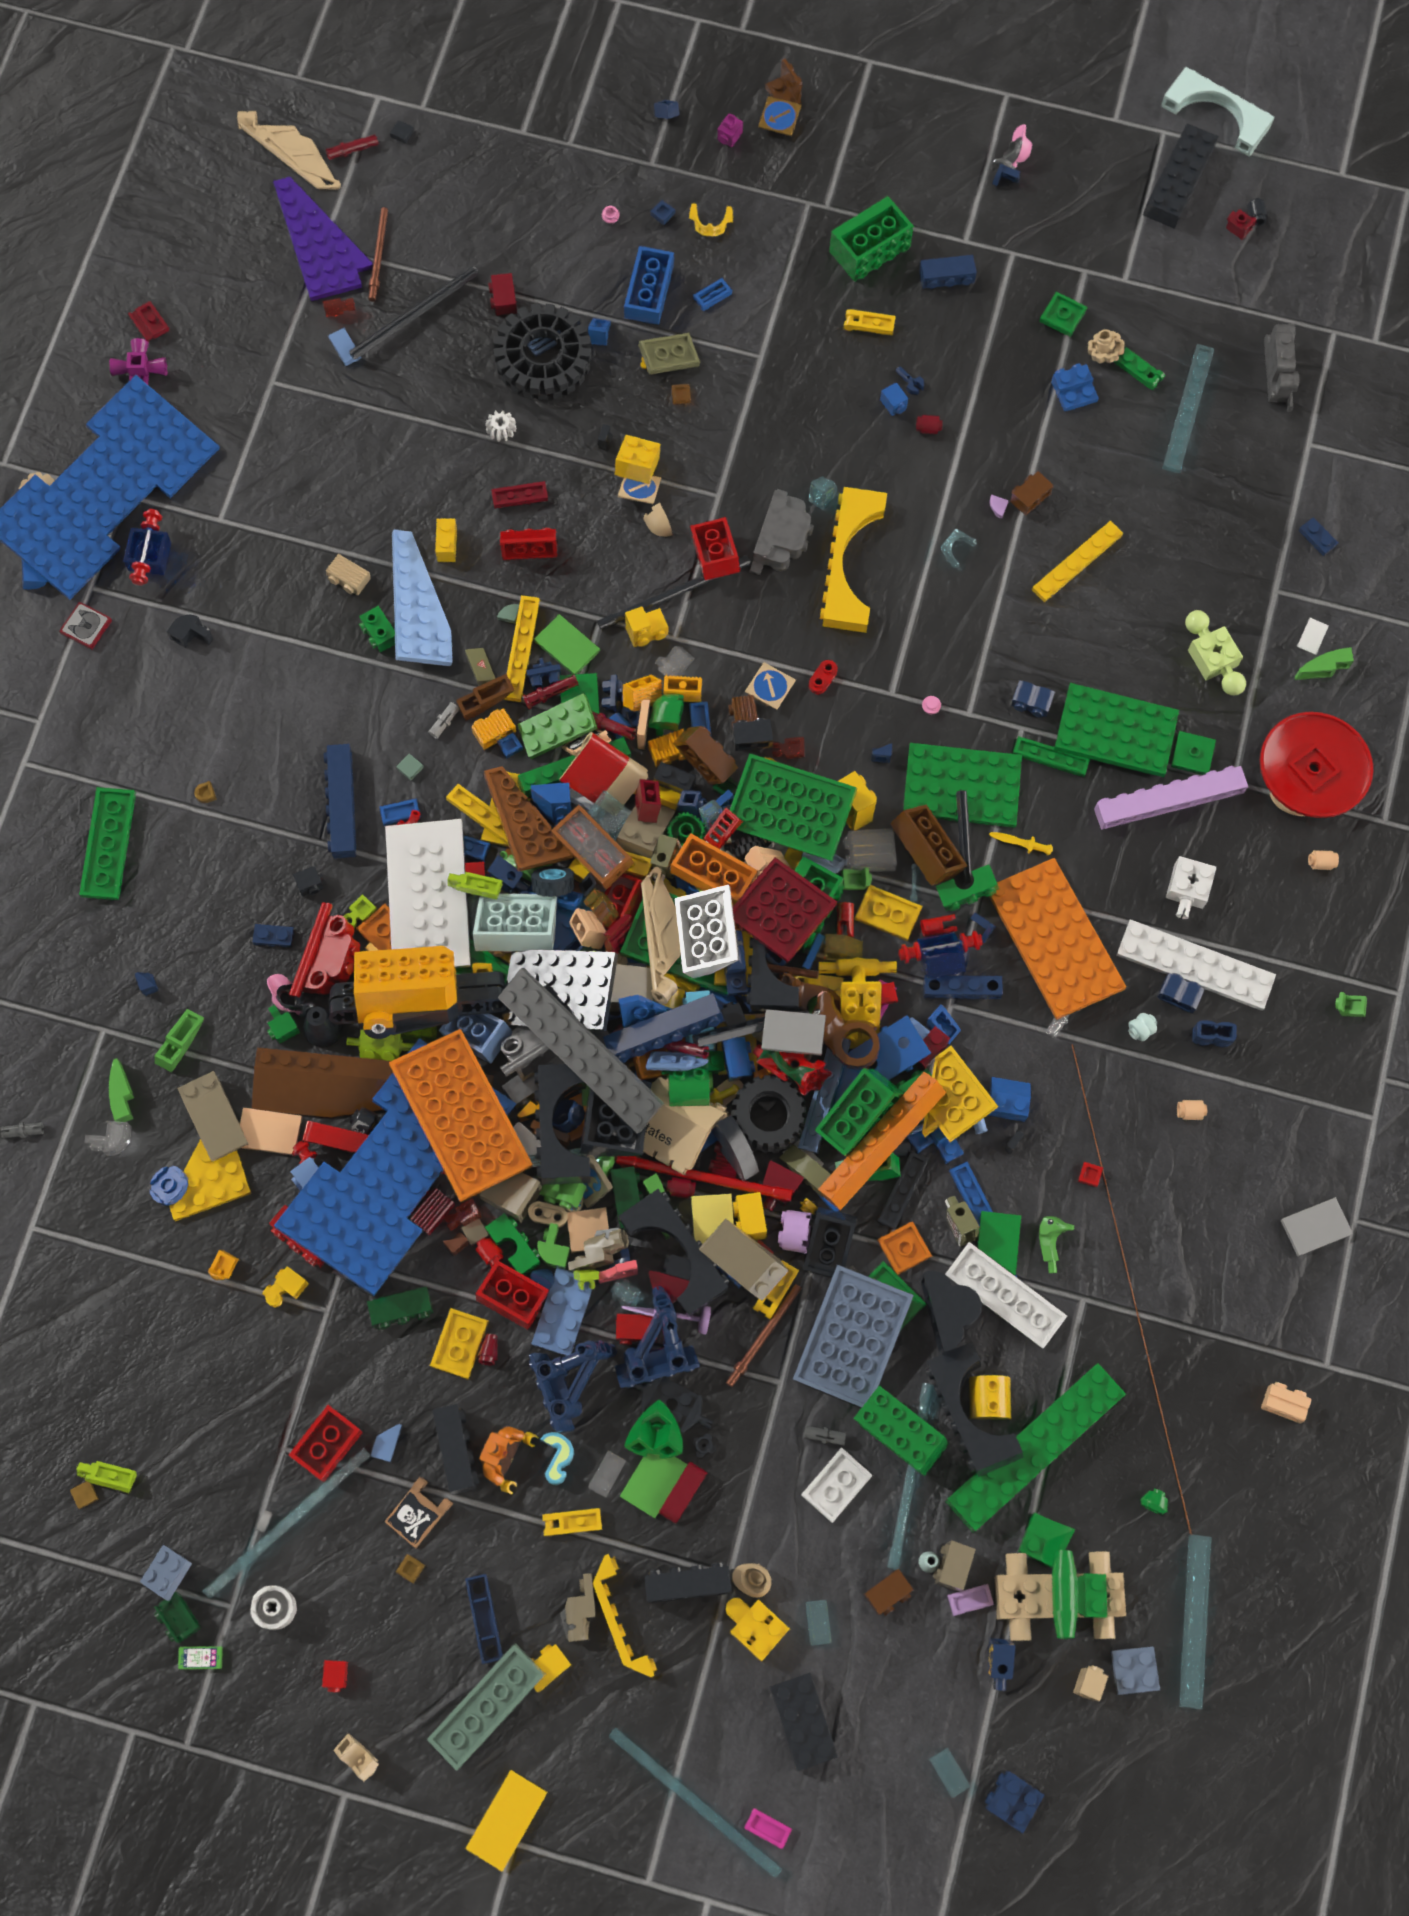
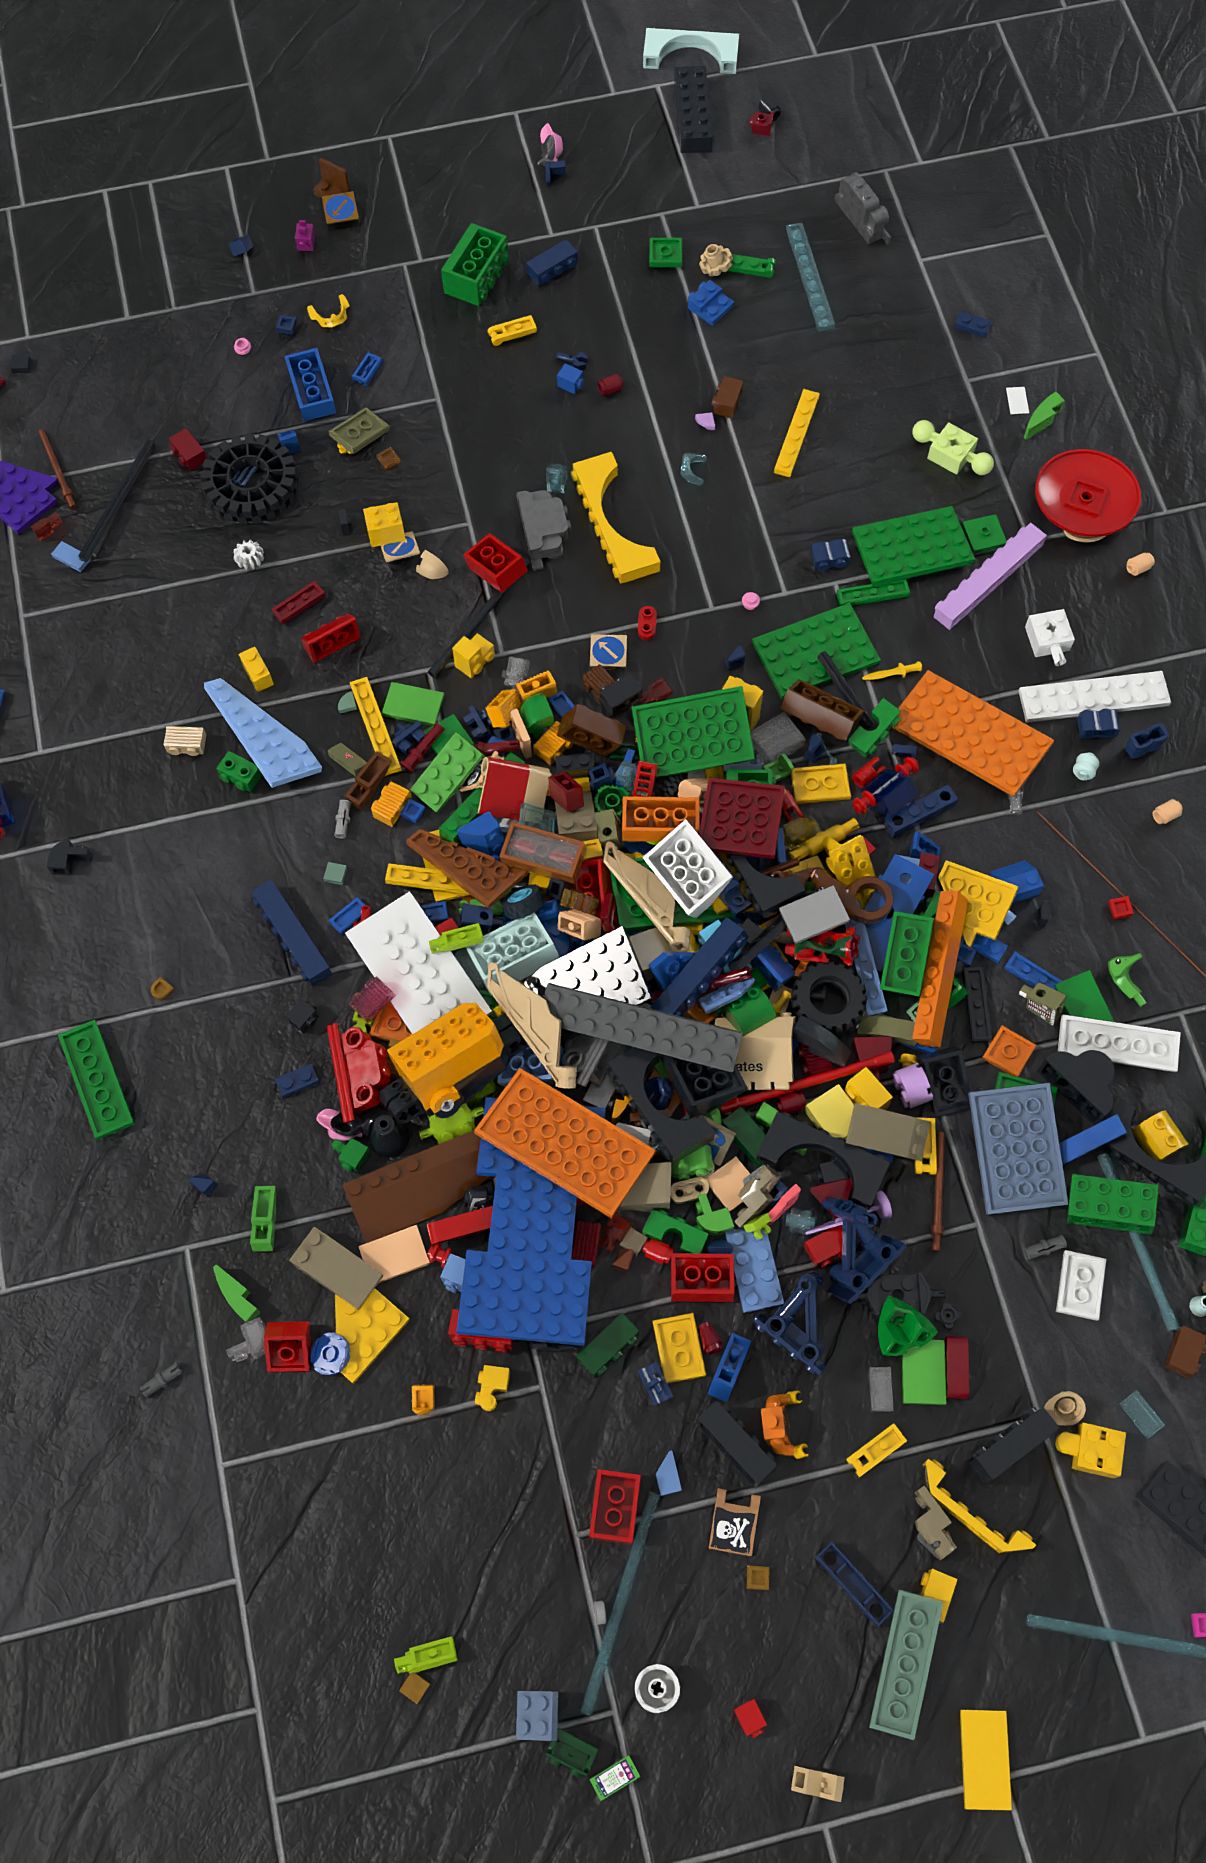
camera: 25 degrees left, 5 degrees down
(138, 1159) = (287, 1346): none -> red slope
(373, 898) = (371, 999): none -> clear pink brick
(419, 1361) = (655, 1383): none -> dark blue hips
(490, 1383) = (729, 1367): none -> blue slope
(492, 995) = (534, 1022): none -> tan wing
(561, 1459) = (833, 1396): animal -> none
(902, 877) = (815, 749): none -> dark blue slope
(922, 1365) = (1091, 1139): none -> blue tile

